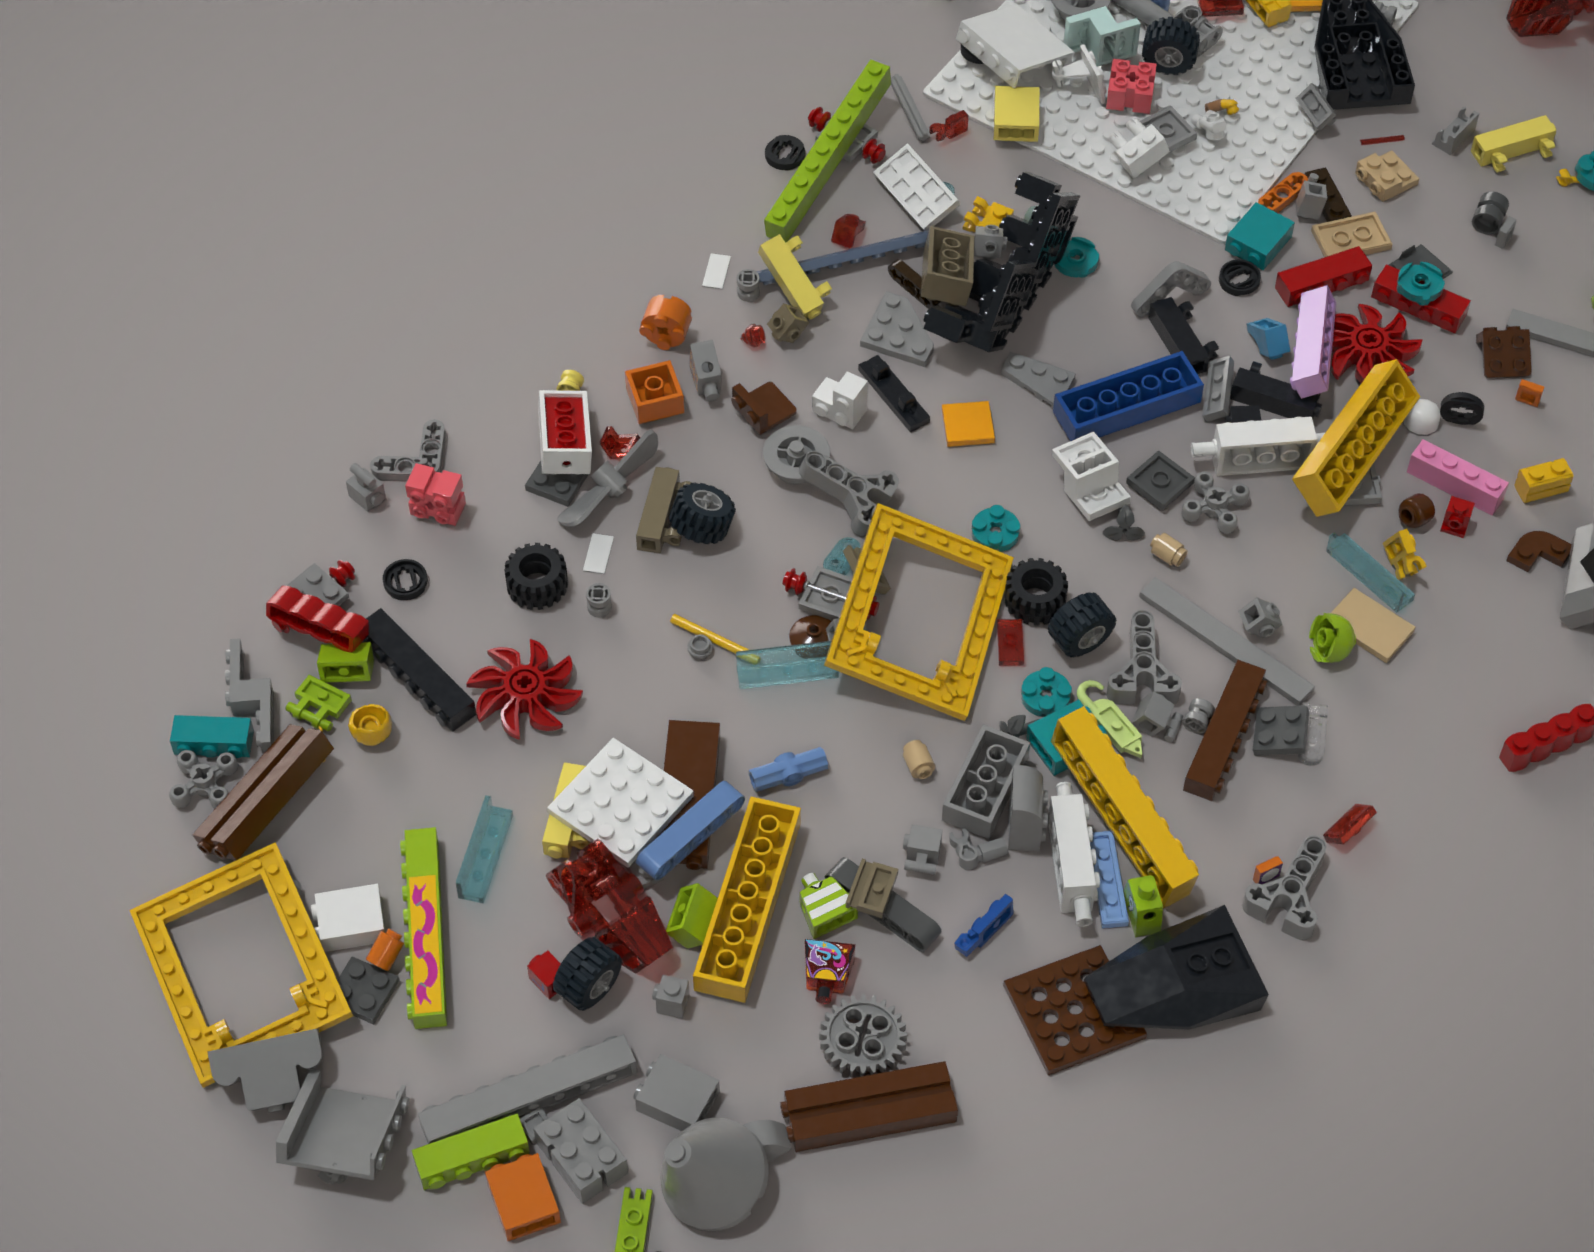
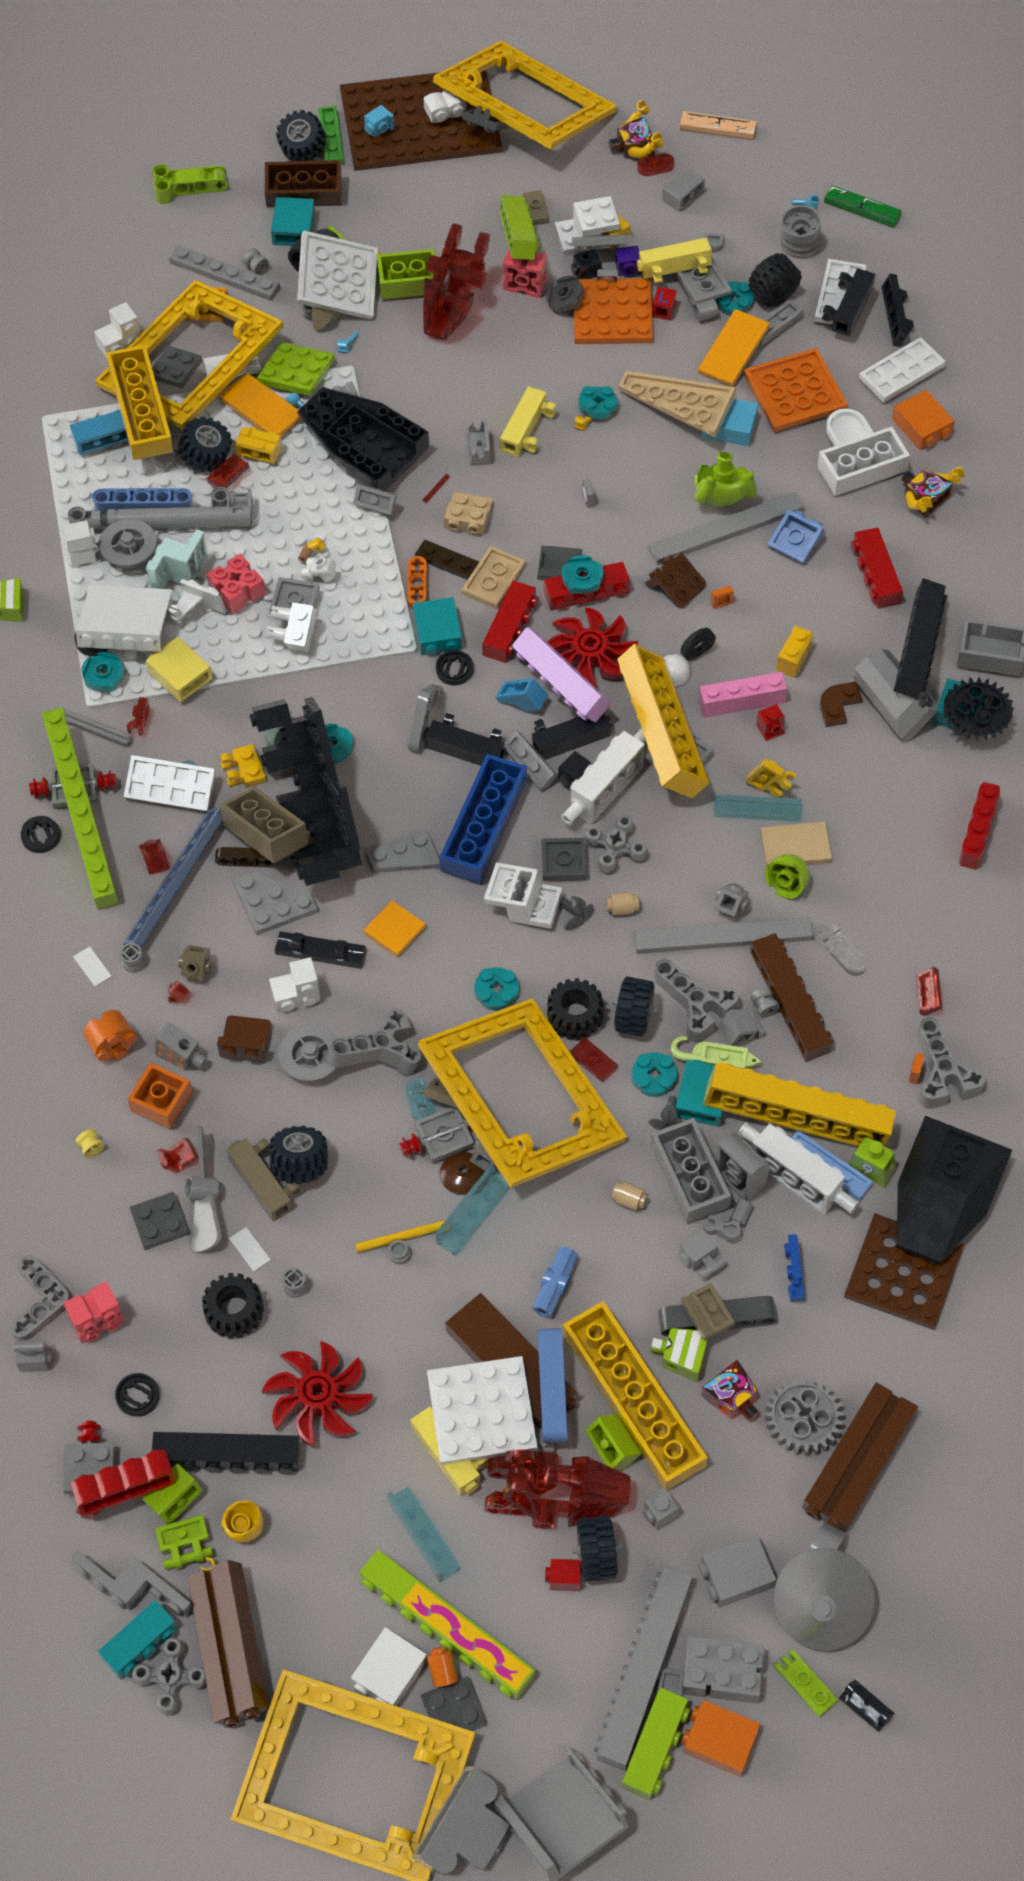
camera: 45 degrees left, 5 degrees up
(564, 432) = (135, 1182): brick -> none
(791, 277) = (162, 925): light yellow brick -> none
(958, 83) = (107, 681): none -> teal plate
(989, 242) = (270, 781): light grey brick -> none
(1171, 45) = (236, 531): black wheel -> none
(1281, 730) = (824, 966): dark grey plate -> none
(1311, 198) = (443, 570): light grey brick -> none
(1416, 510) = (742, 739): reddish brown head -> none
(1490, 213) = (565, 487): dark grey wheel -> none

